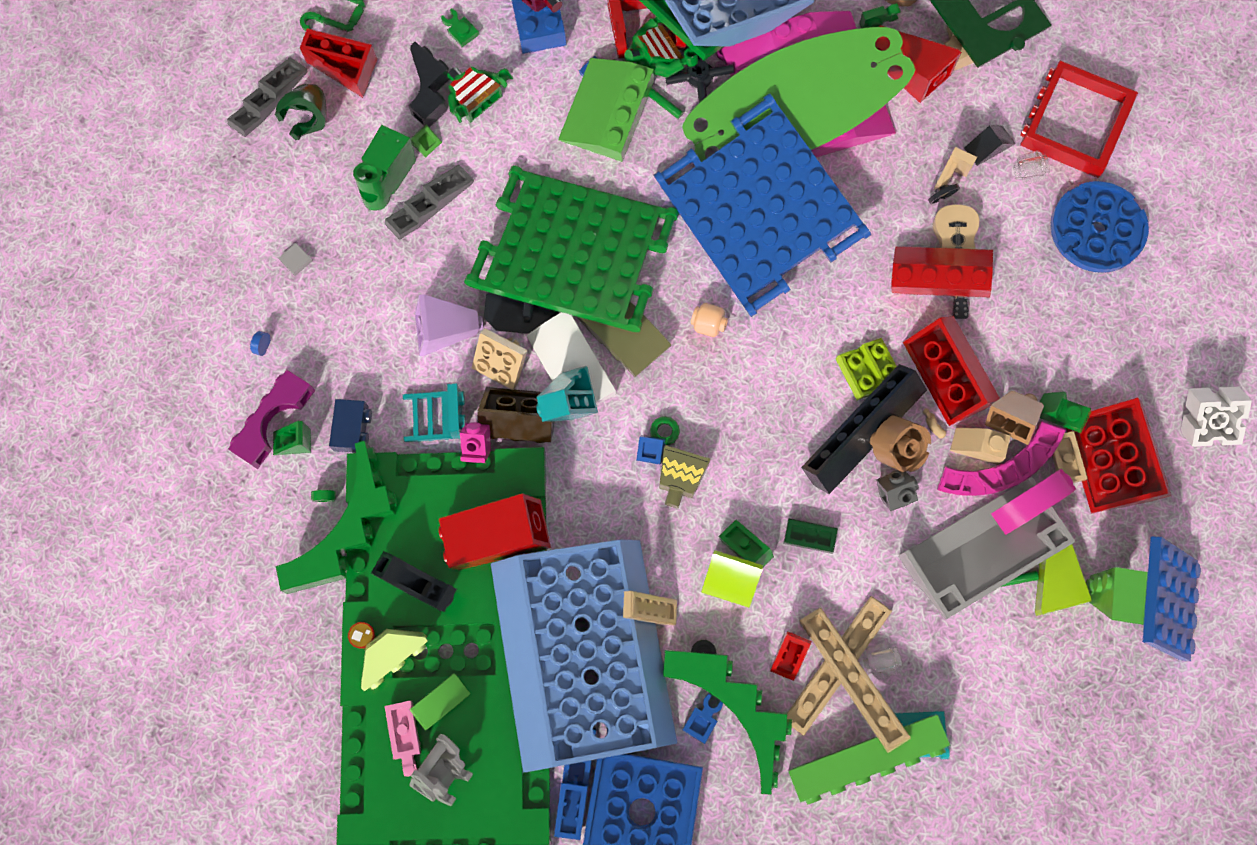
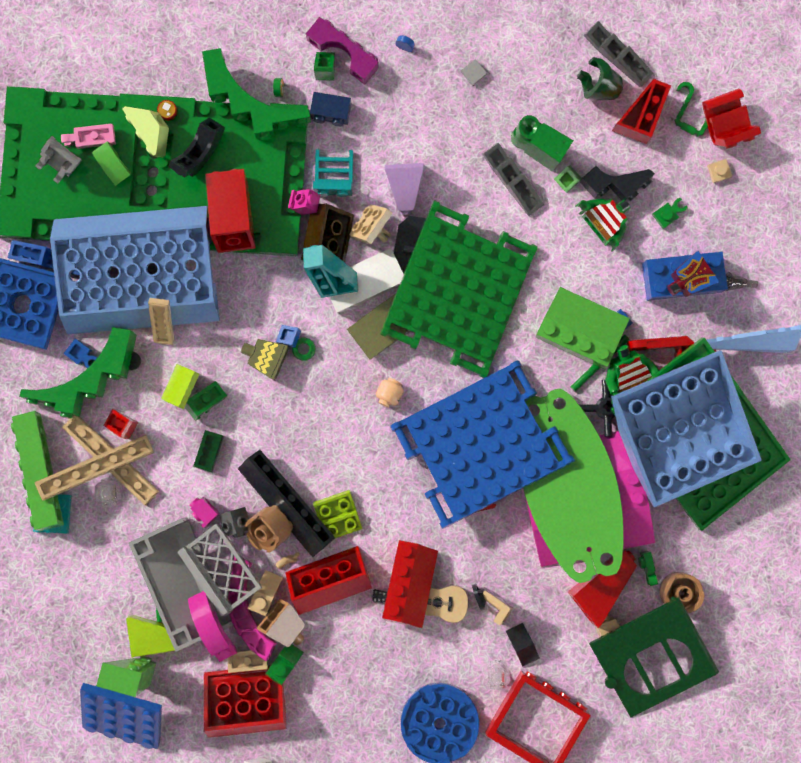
camera: 90 degrees right, 10 degrees up
(889, 532) = (203, 511): none -> dark pink brick
(977, 514) = (205, 579): none -> light grey fence

